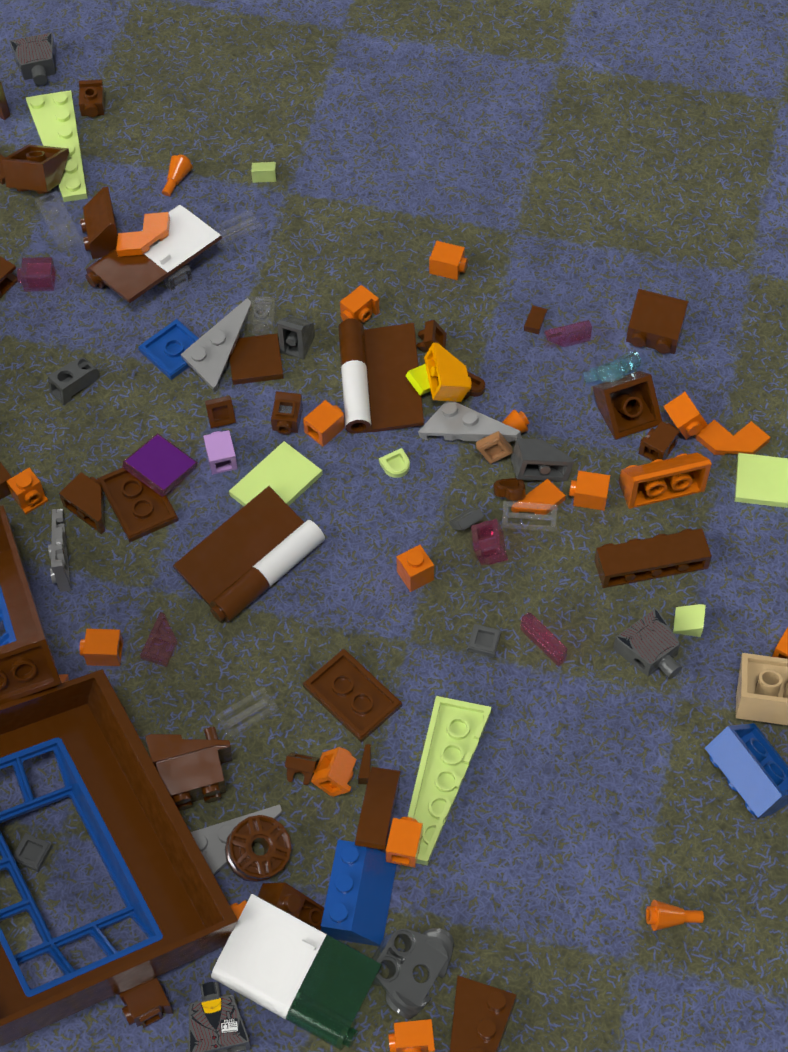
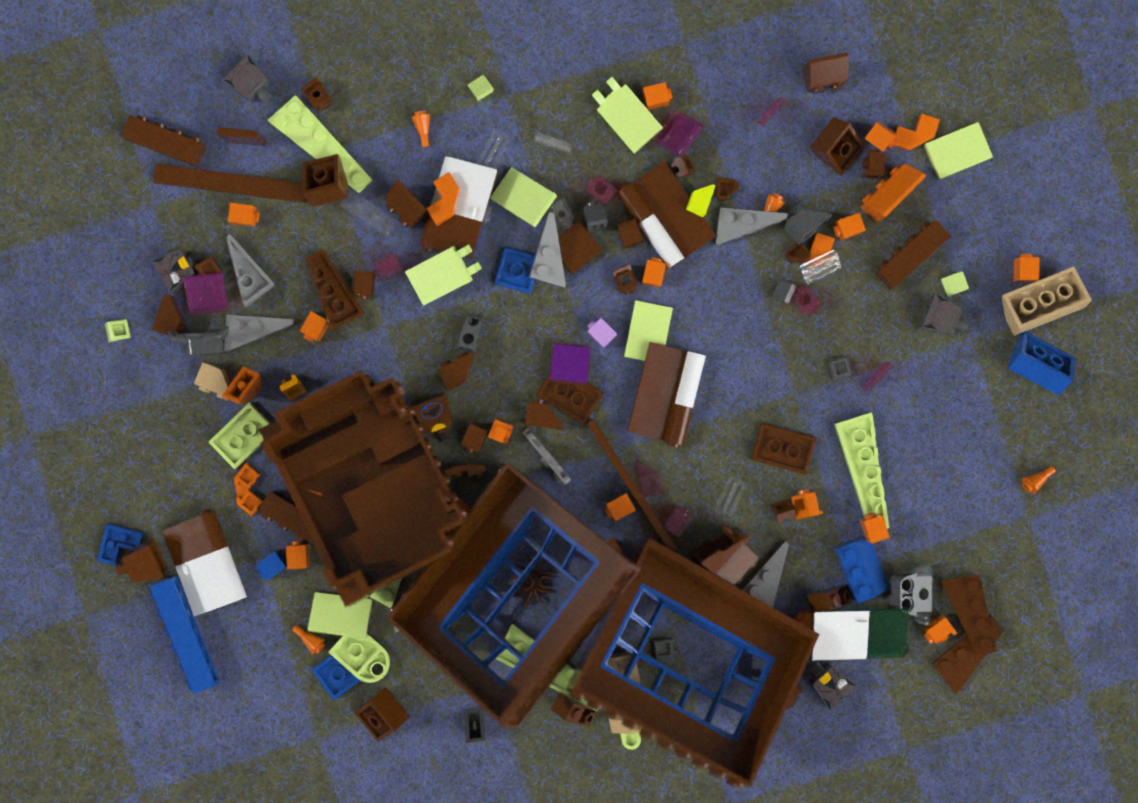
camera: 30 degrees left, 30 degrees up
(29, 407) = (457, 372): none -> reddish brown slope
(88, 302) = (441, 274): none -> yellowish green tile
(134, 627) = (631, 485): none -> reddish brown tile
(159, 702) = (677, 521): none -> clear pink brick
(220, 411) = (581, 302): reddish brown tile -> none
(232, 279) = (523, 197): none -> yellowish green tile
(275, 843) = (783, 571): reddish brown wheel -> none
(302, 249) = (553, 143): none -> clear tile
(324, 316) = (600, 182): none -> clear pink brick
(324, 371) = (629, 233): none -> reddish brown brick
(359, 305) = (620, 169): orange brick -> none
(365, 765) = (819, 490): reddish brown piece -> none
(378, 808) = (846, 515): reddish brown slope -> none
(395, 464) = (714, 274): yellowish green tile -> none
(402, 264) = (627, 116): none -> yellowish green tile
(415, 568) = (774, 346): orange brick -> none
(446, 375) = (714, 195): light orange slope -> none
(447, 302) = (678, 133): none -> clear pink tile
(494, 447) = (773, 231): medium nougat tile -> none
(527, 670) = (877, 376): none -> clear pink tile
(535, 319) = (739, 108): reddish brown piece -> none
(543, 639) = (877, 349): clear pink tile -> none
(614, 370) = (817, 128): clear light blue bar -> none

